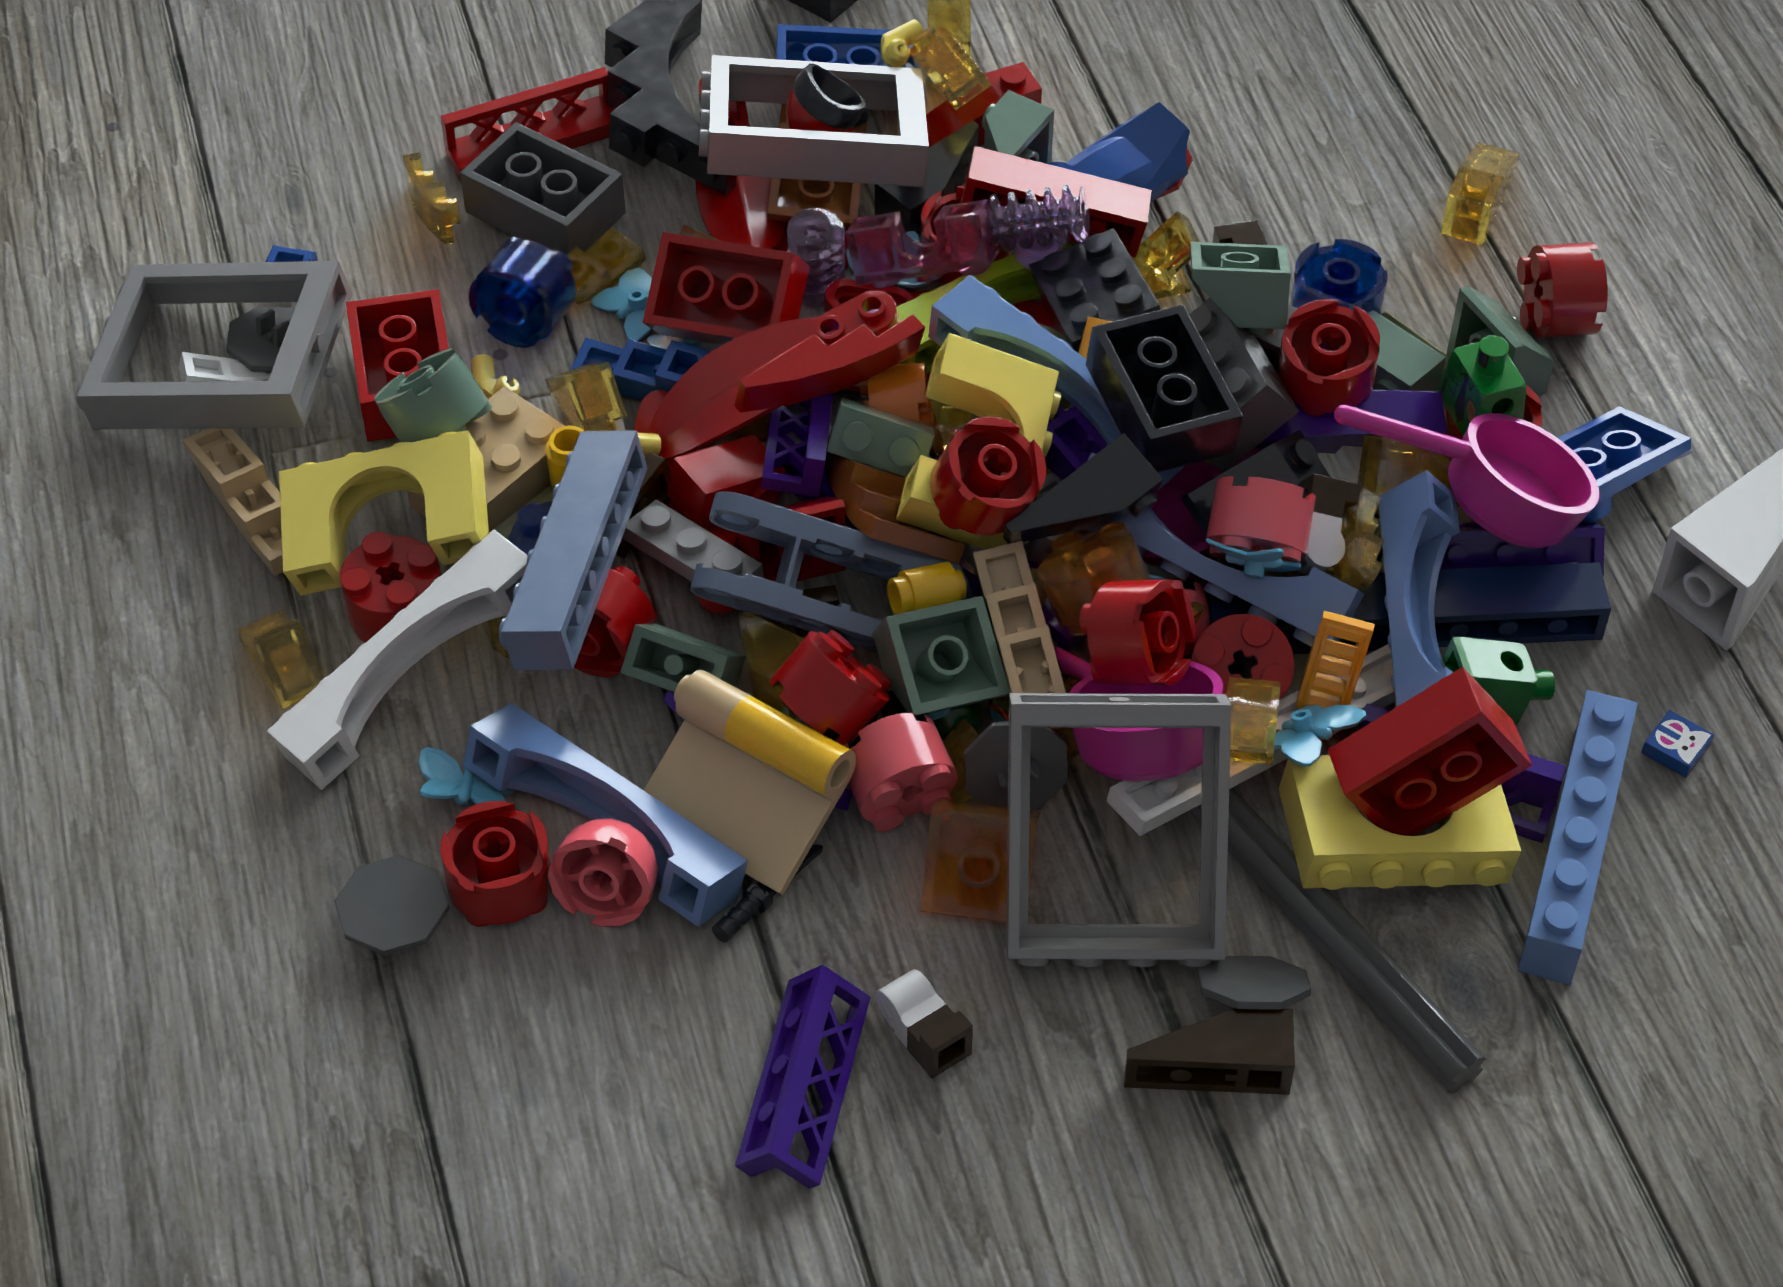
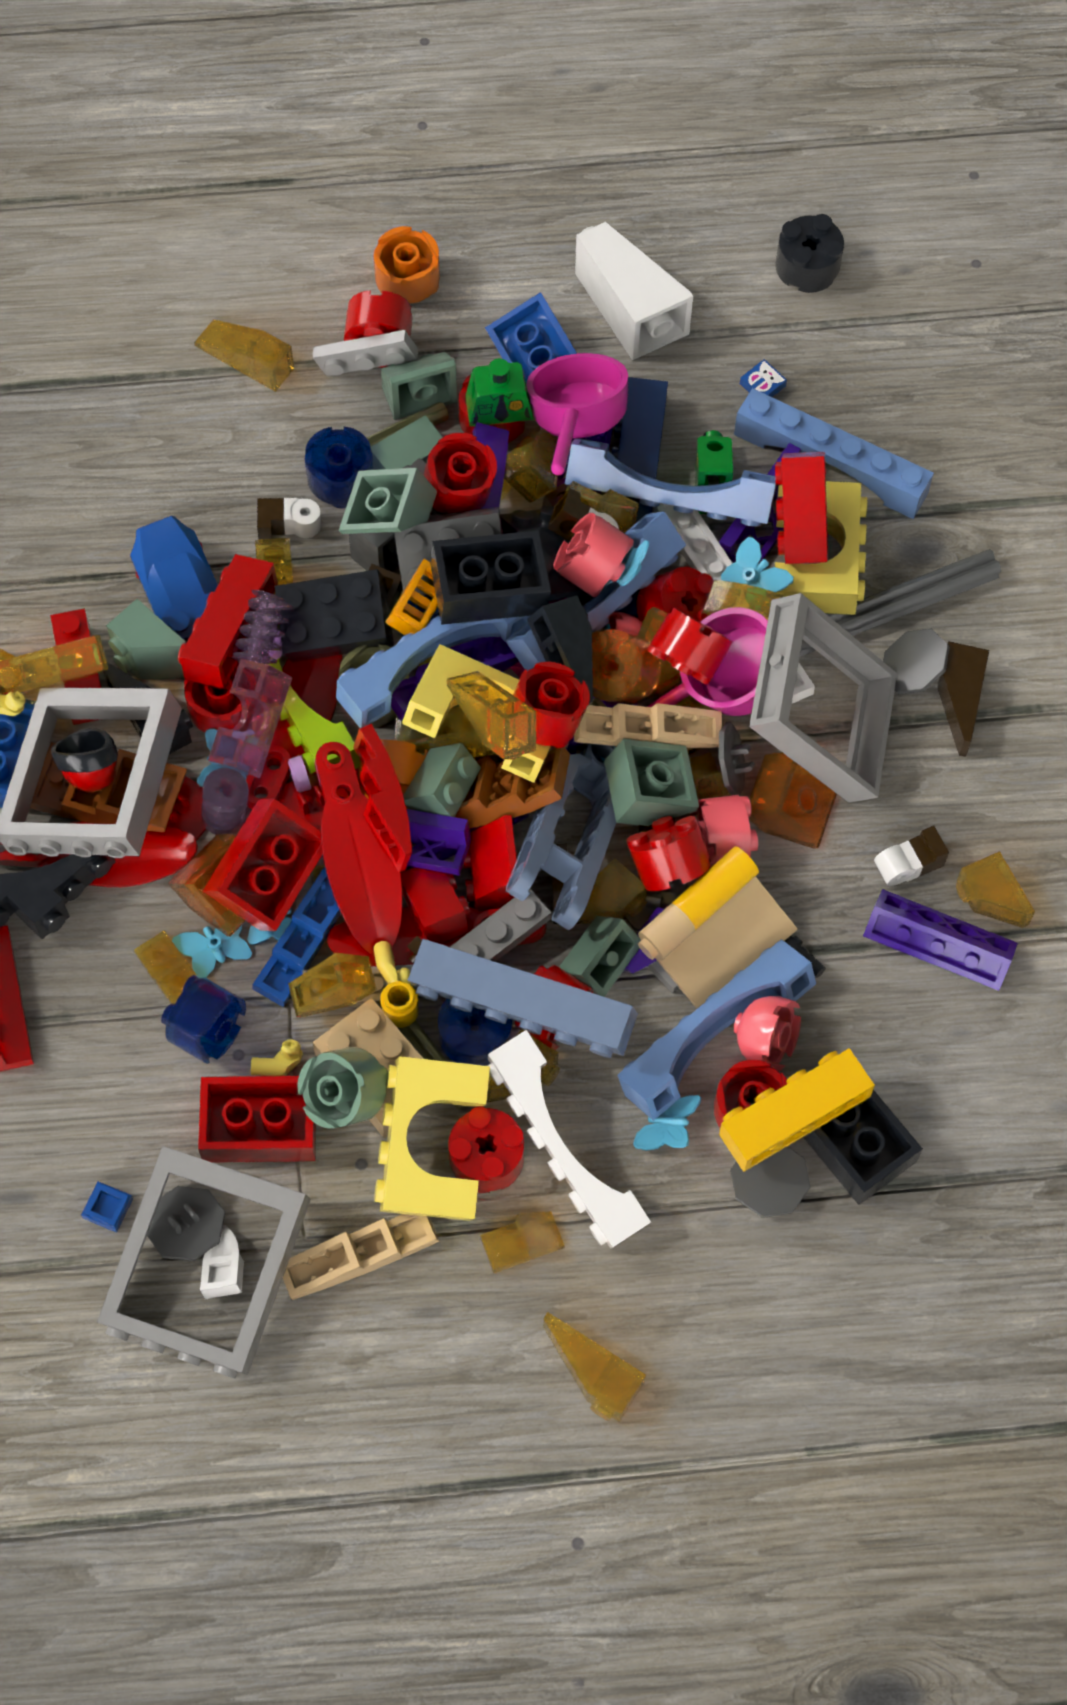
camera: 80 degrees left, 15 degrees up
(106, 750) = (600, 1375): none -> clear yellow slope
(430, 199) = (75, 1081): clear yellow slope -> none
(466, 989) = (865, 1147): none -> black brick
(469, 879) = (796, 1108): none -> yellow brick
(542, 191) = (90, 992): dark grey brick -> none
(896, 1133) = (994, 891): none -> clear yellow slope
(925, 587) = (598, 777): yellow brick -> none
(936, 413) = (497, 716): none -> clear yellow slope
(1329, 690) = (710, 545): light orange slope -> none
(1515, 283) = (365, 353): none -> light grey plate
(1679, 308) = (407, 263): none -> orange brick

